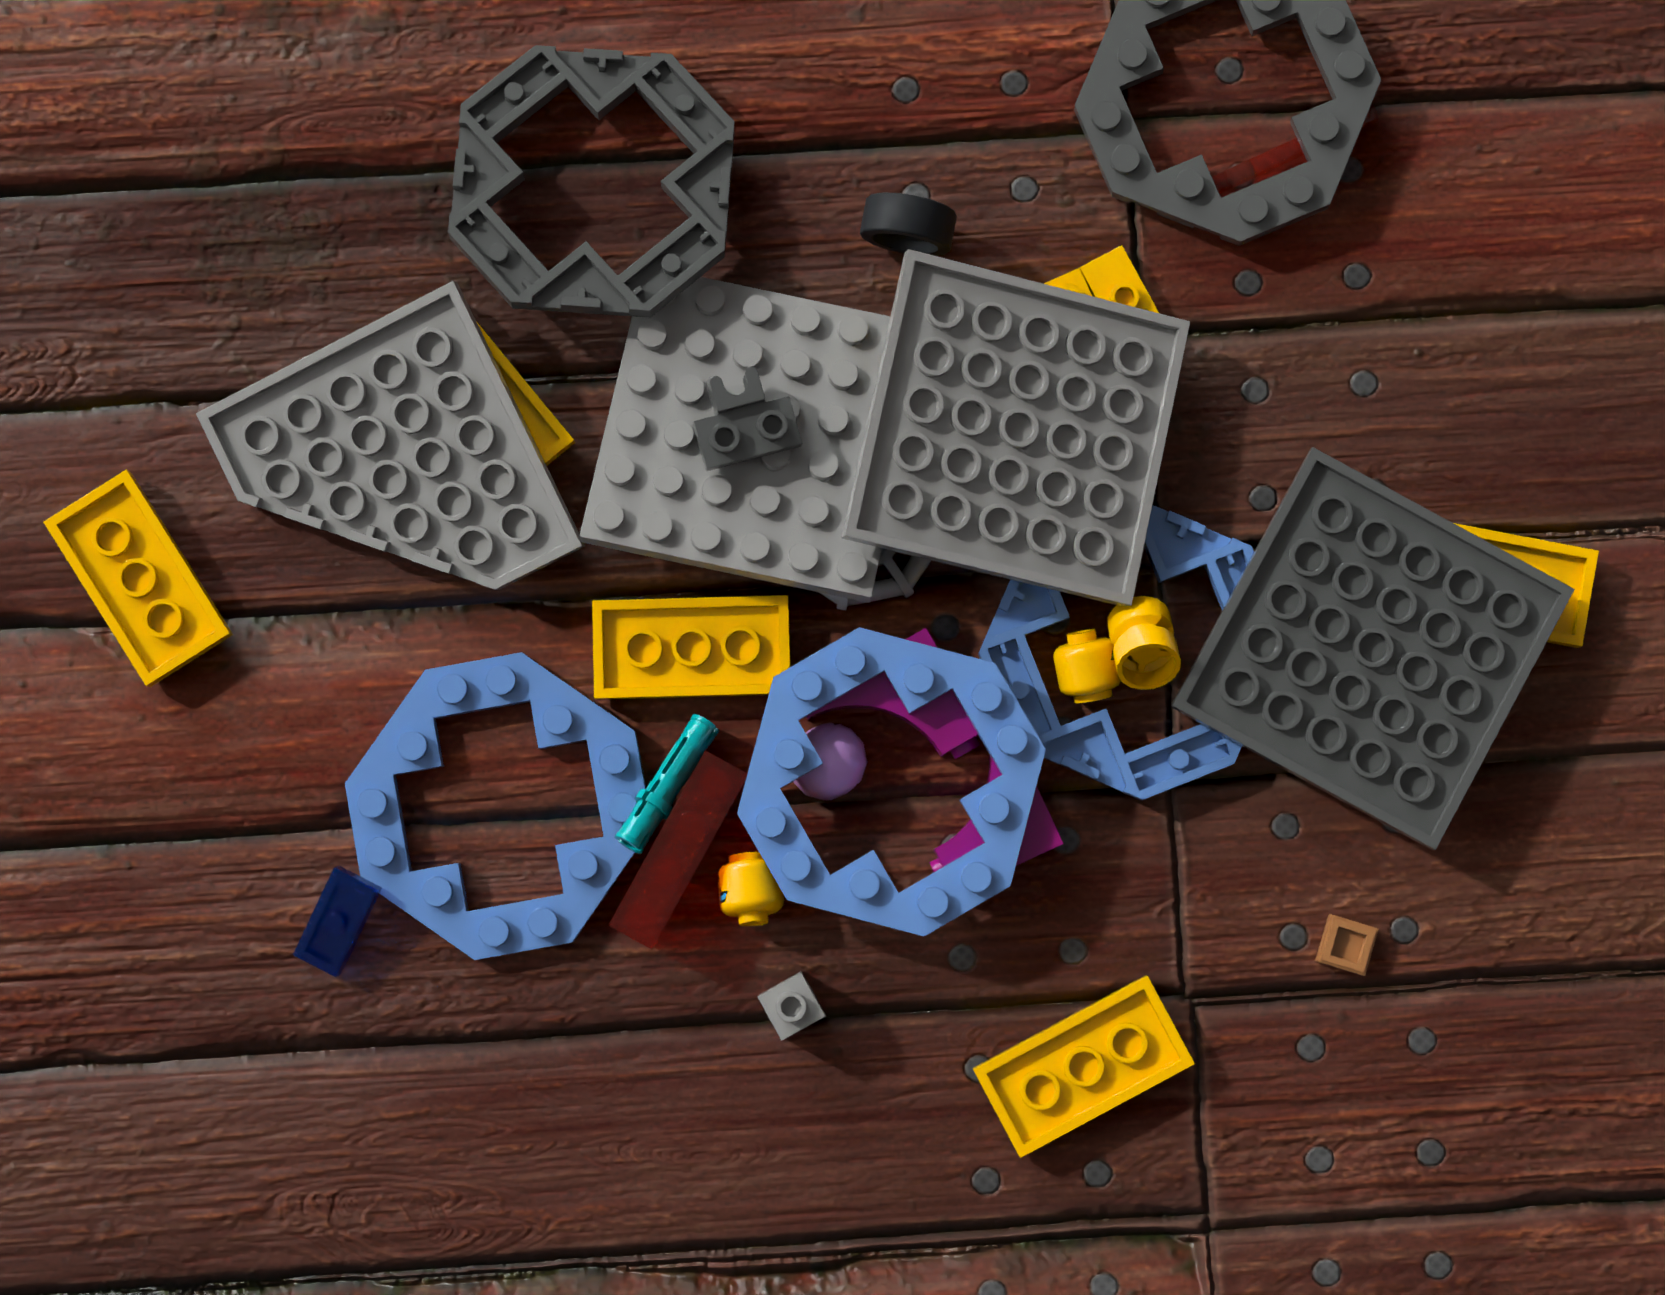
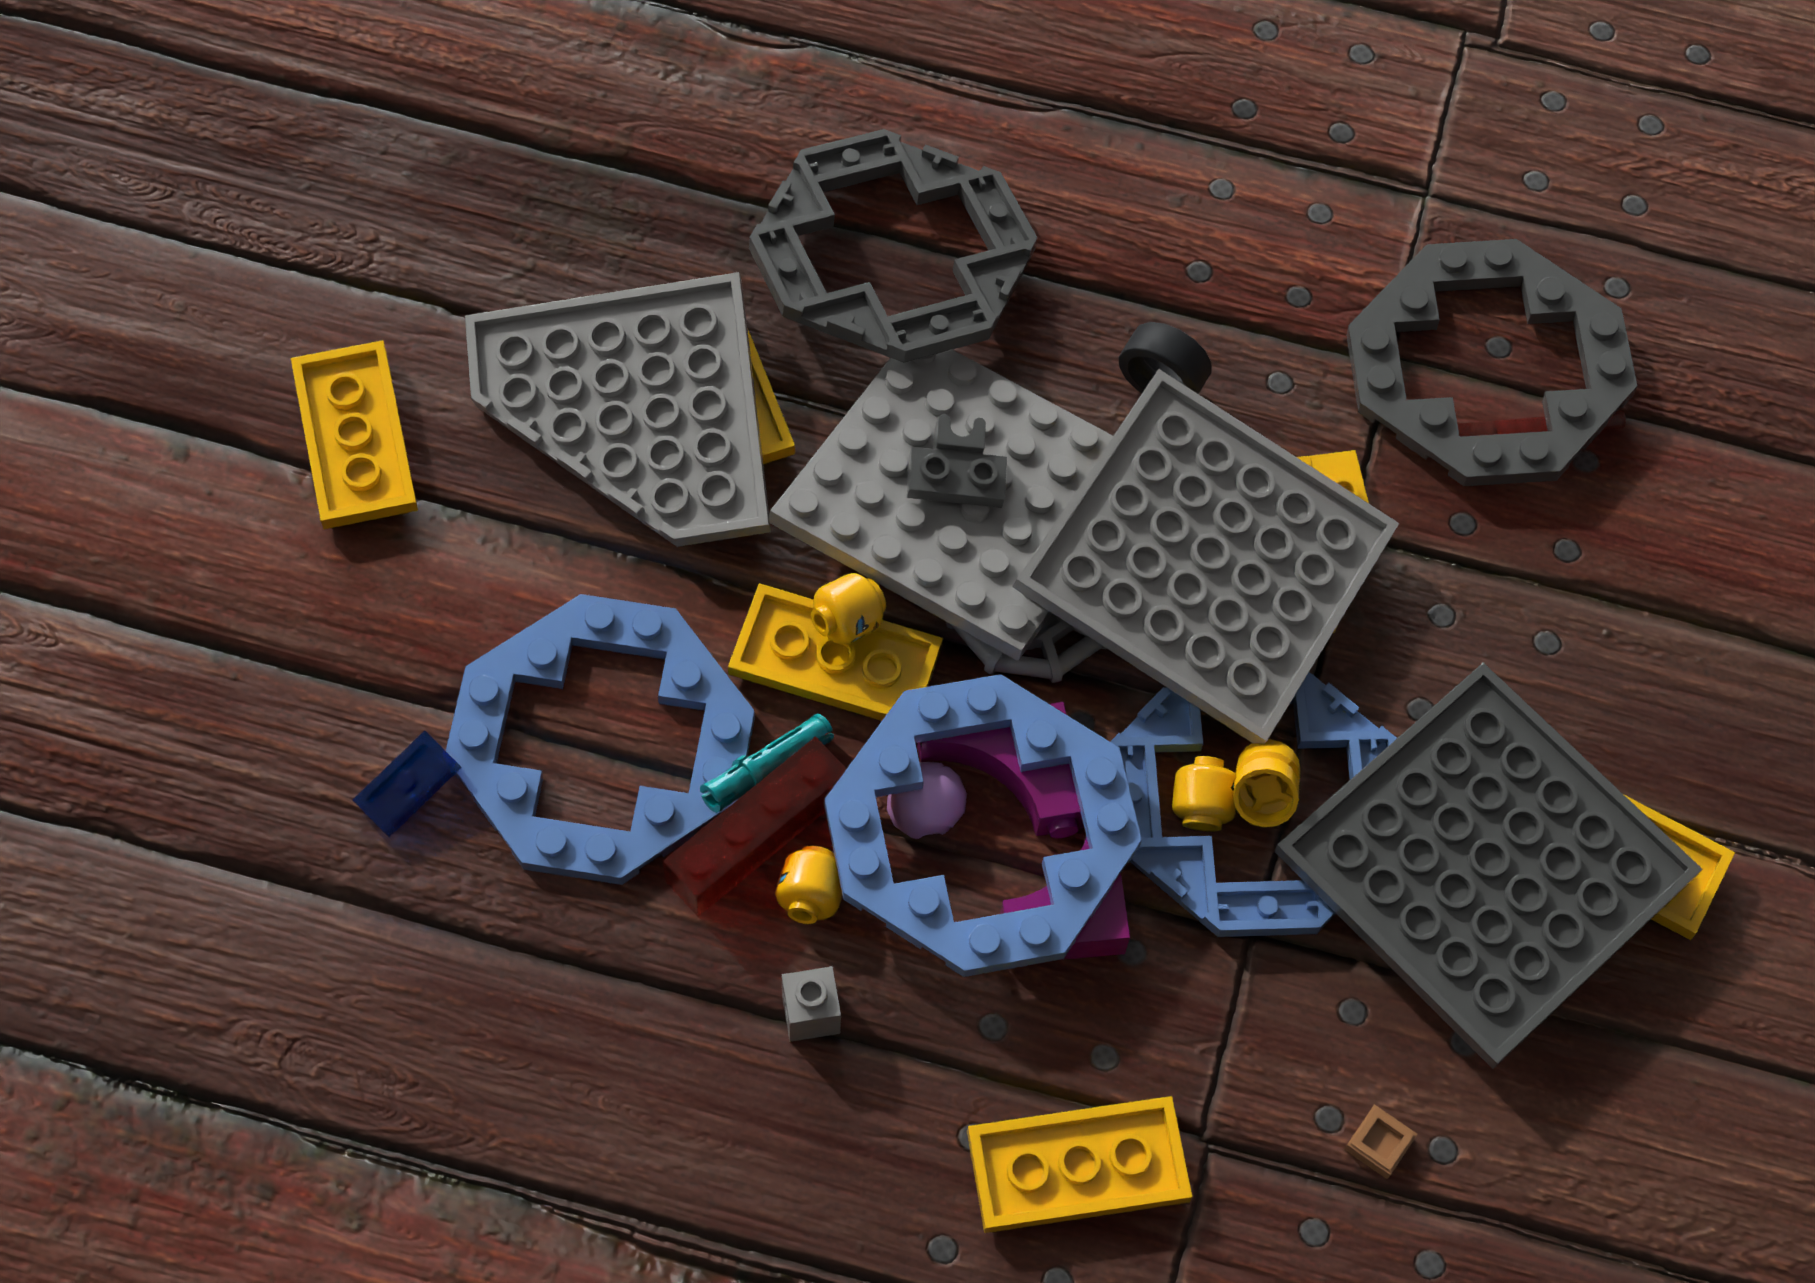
camera: 15 degrees right, 20 degrees down
(689, 606) = (848, 608): none -> yellow head

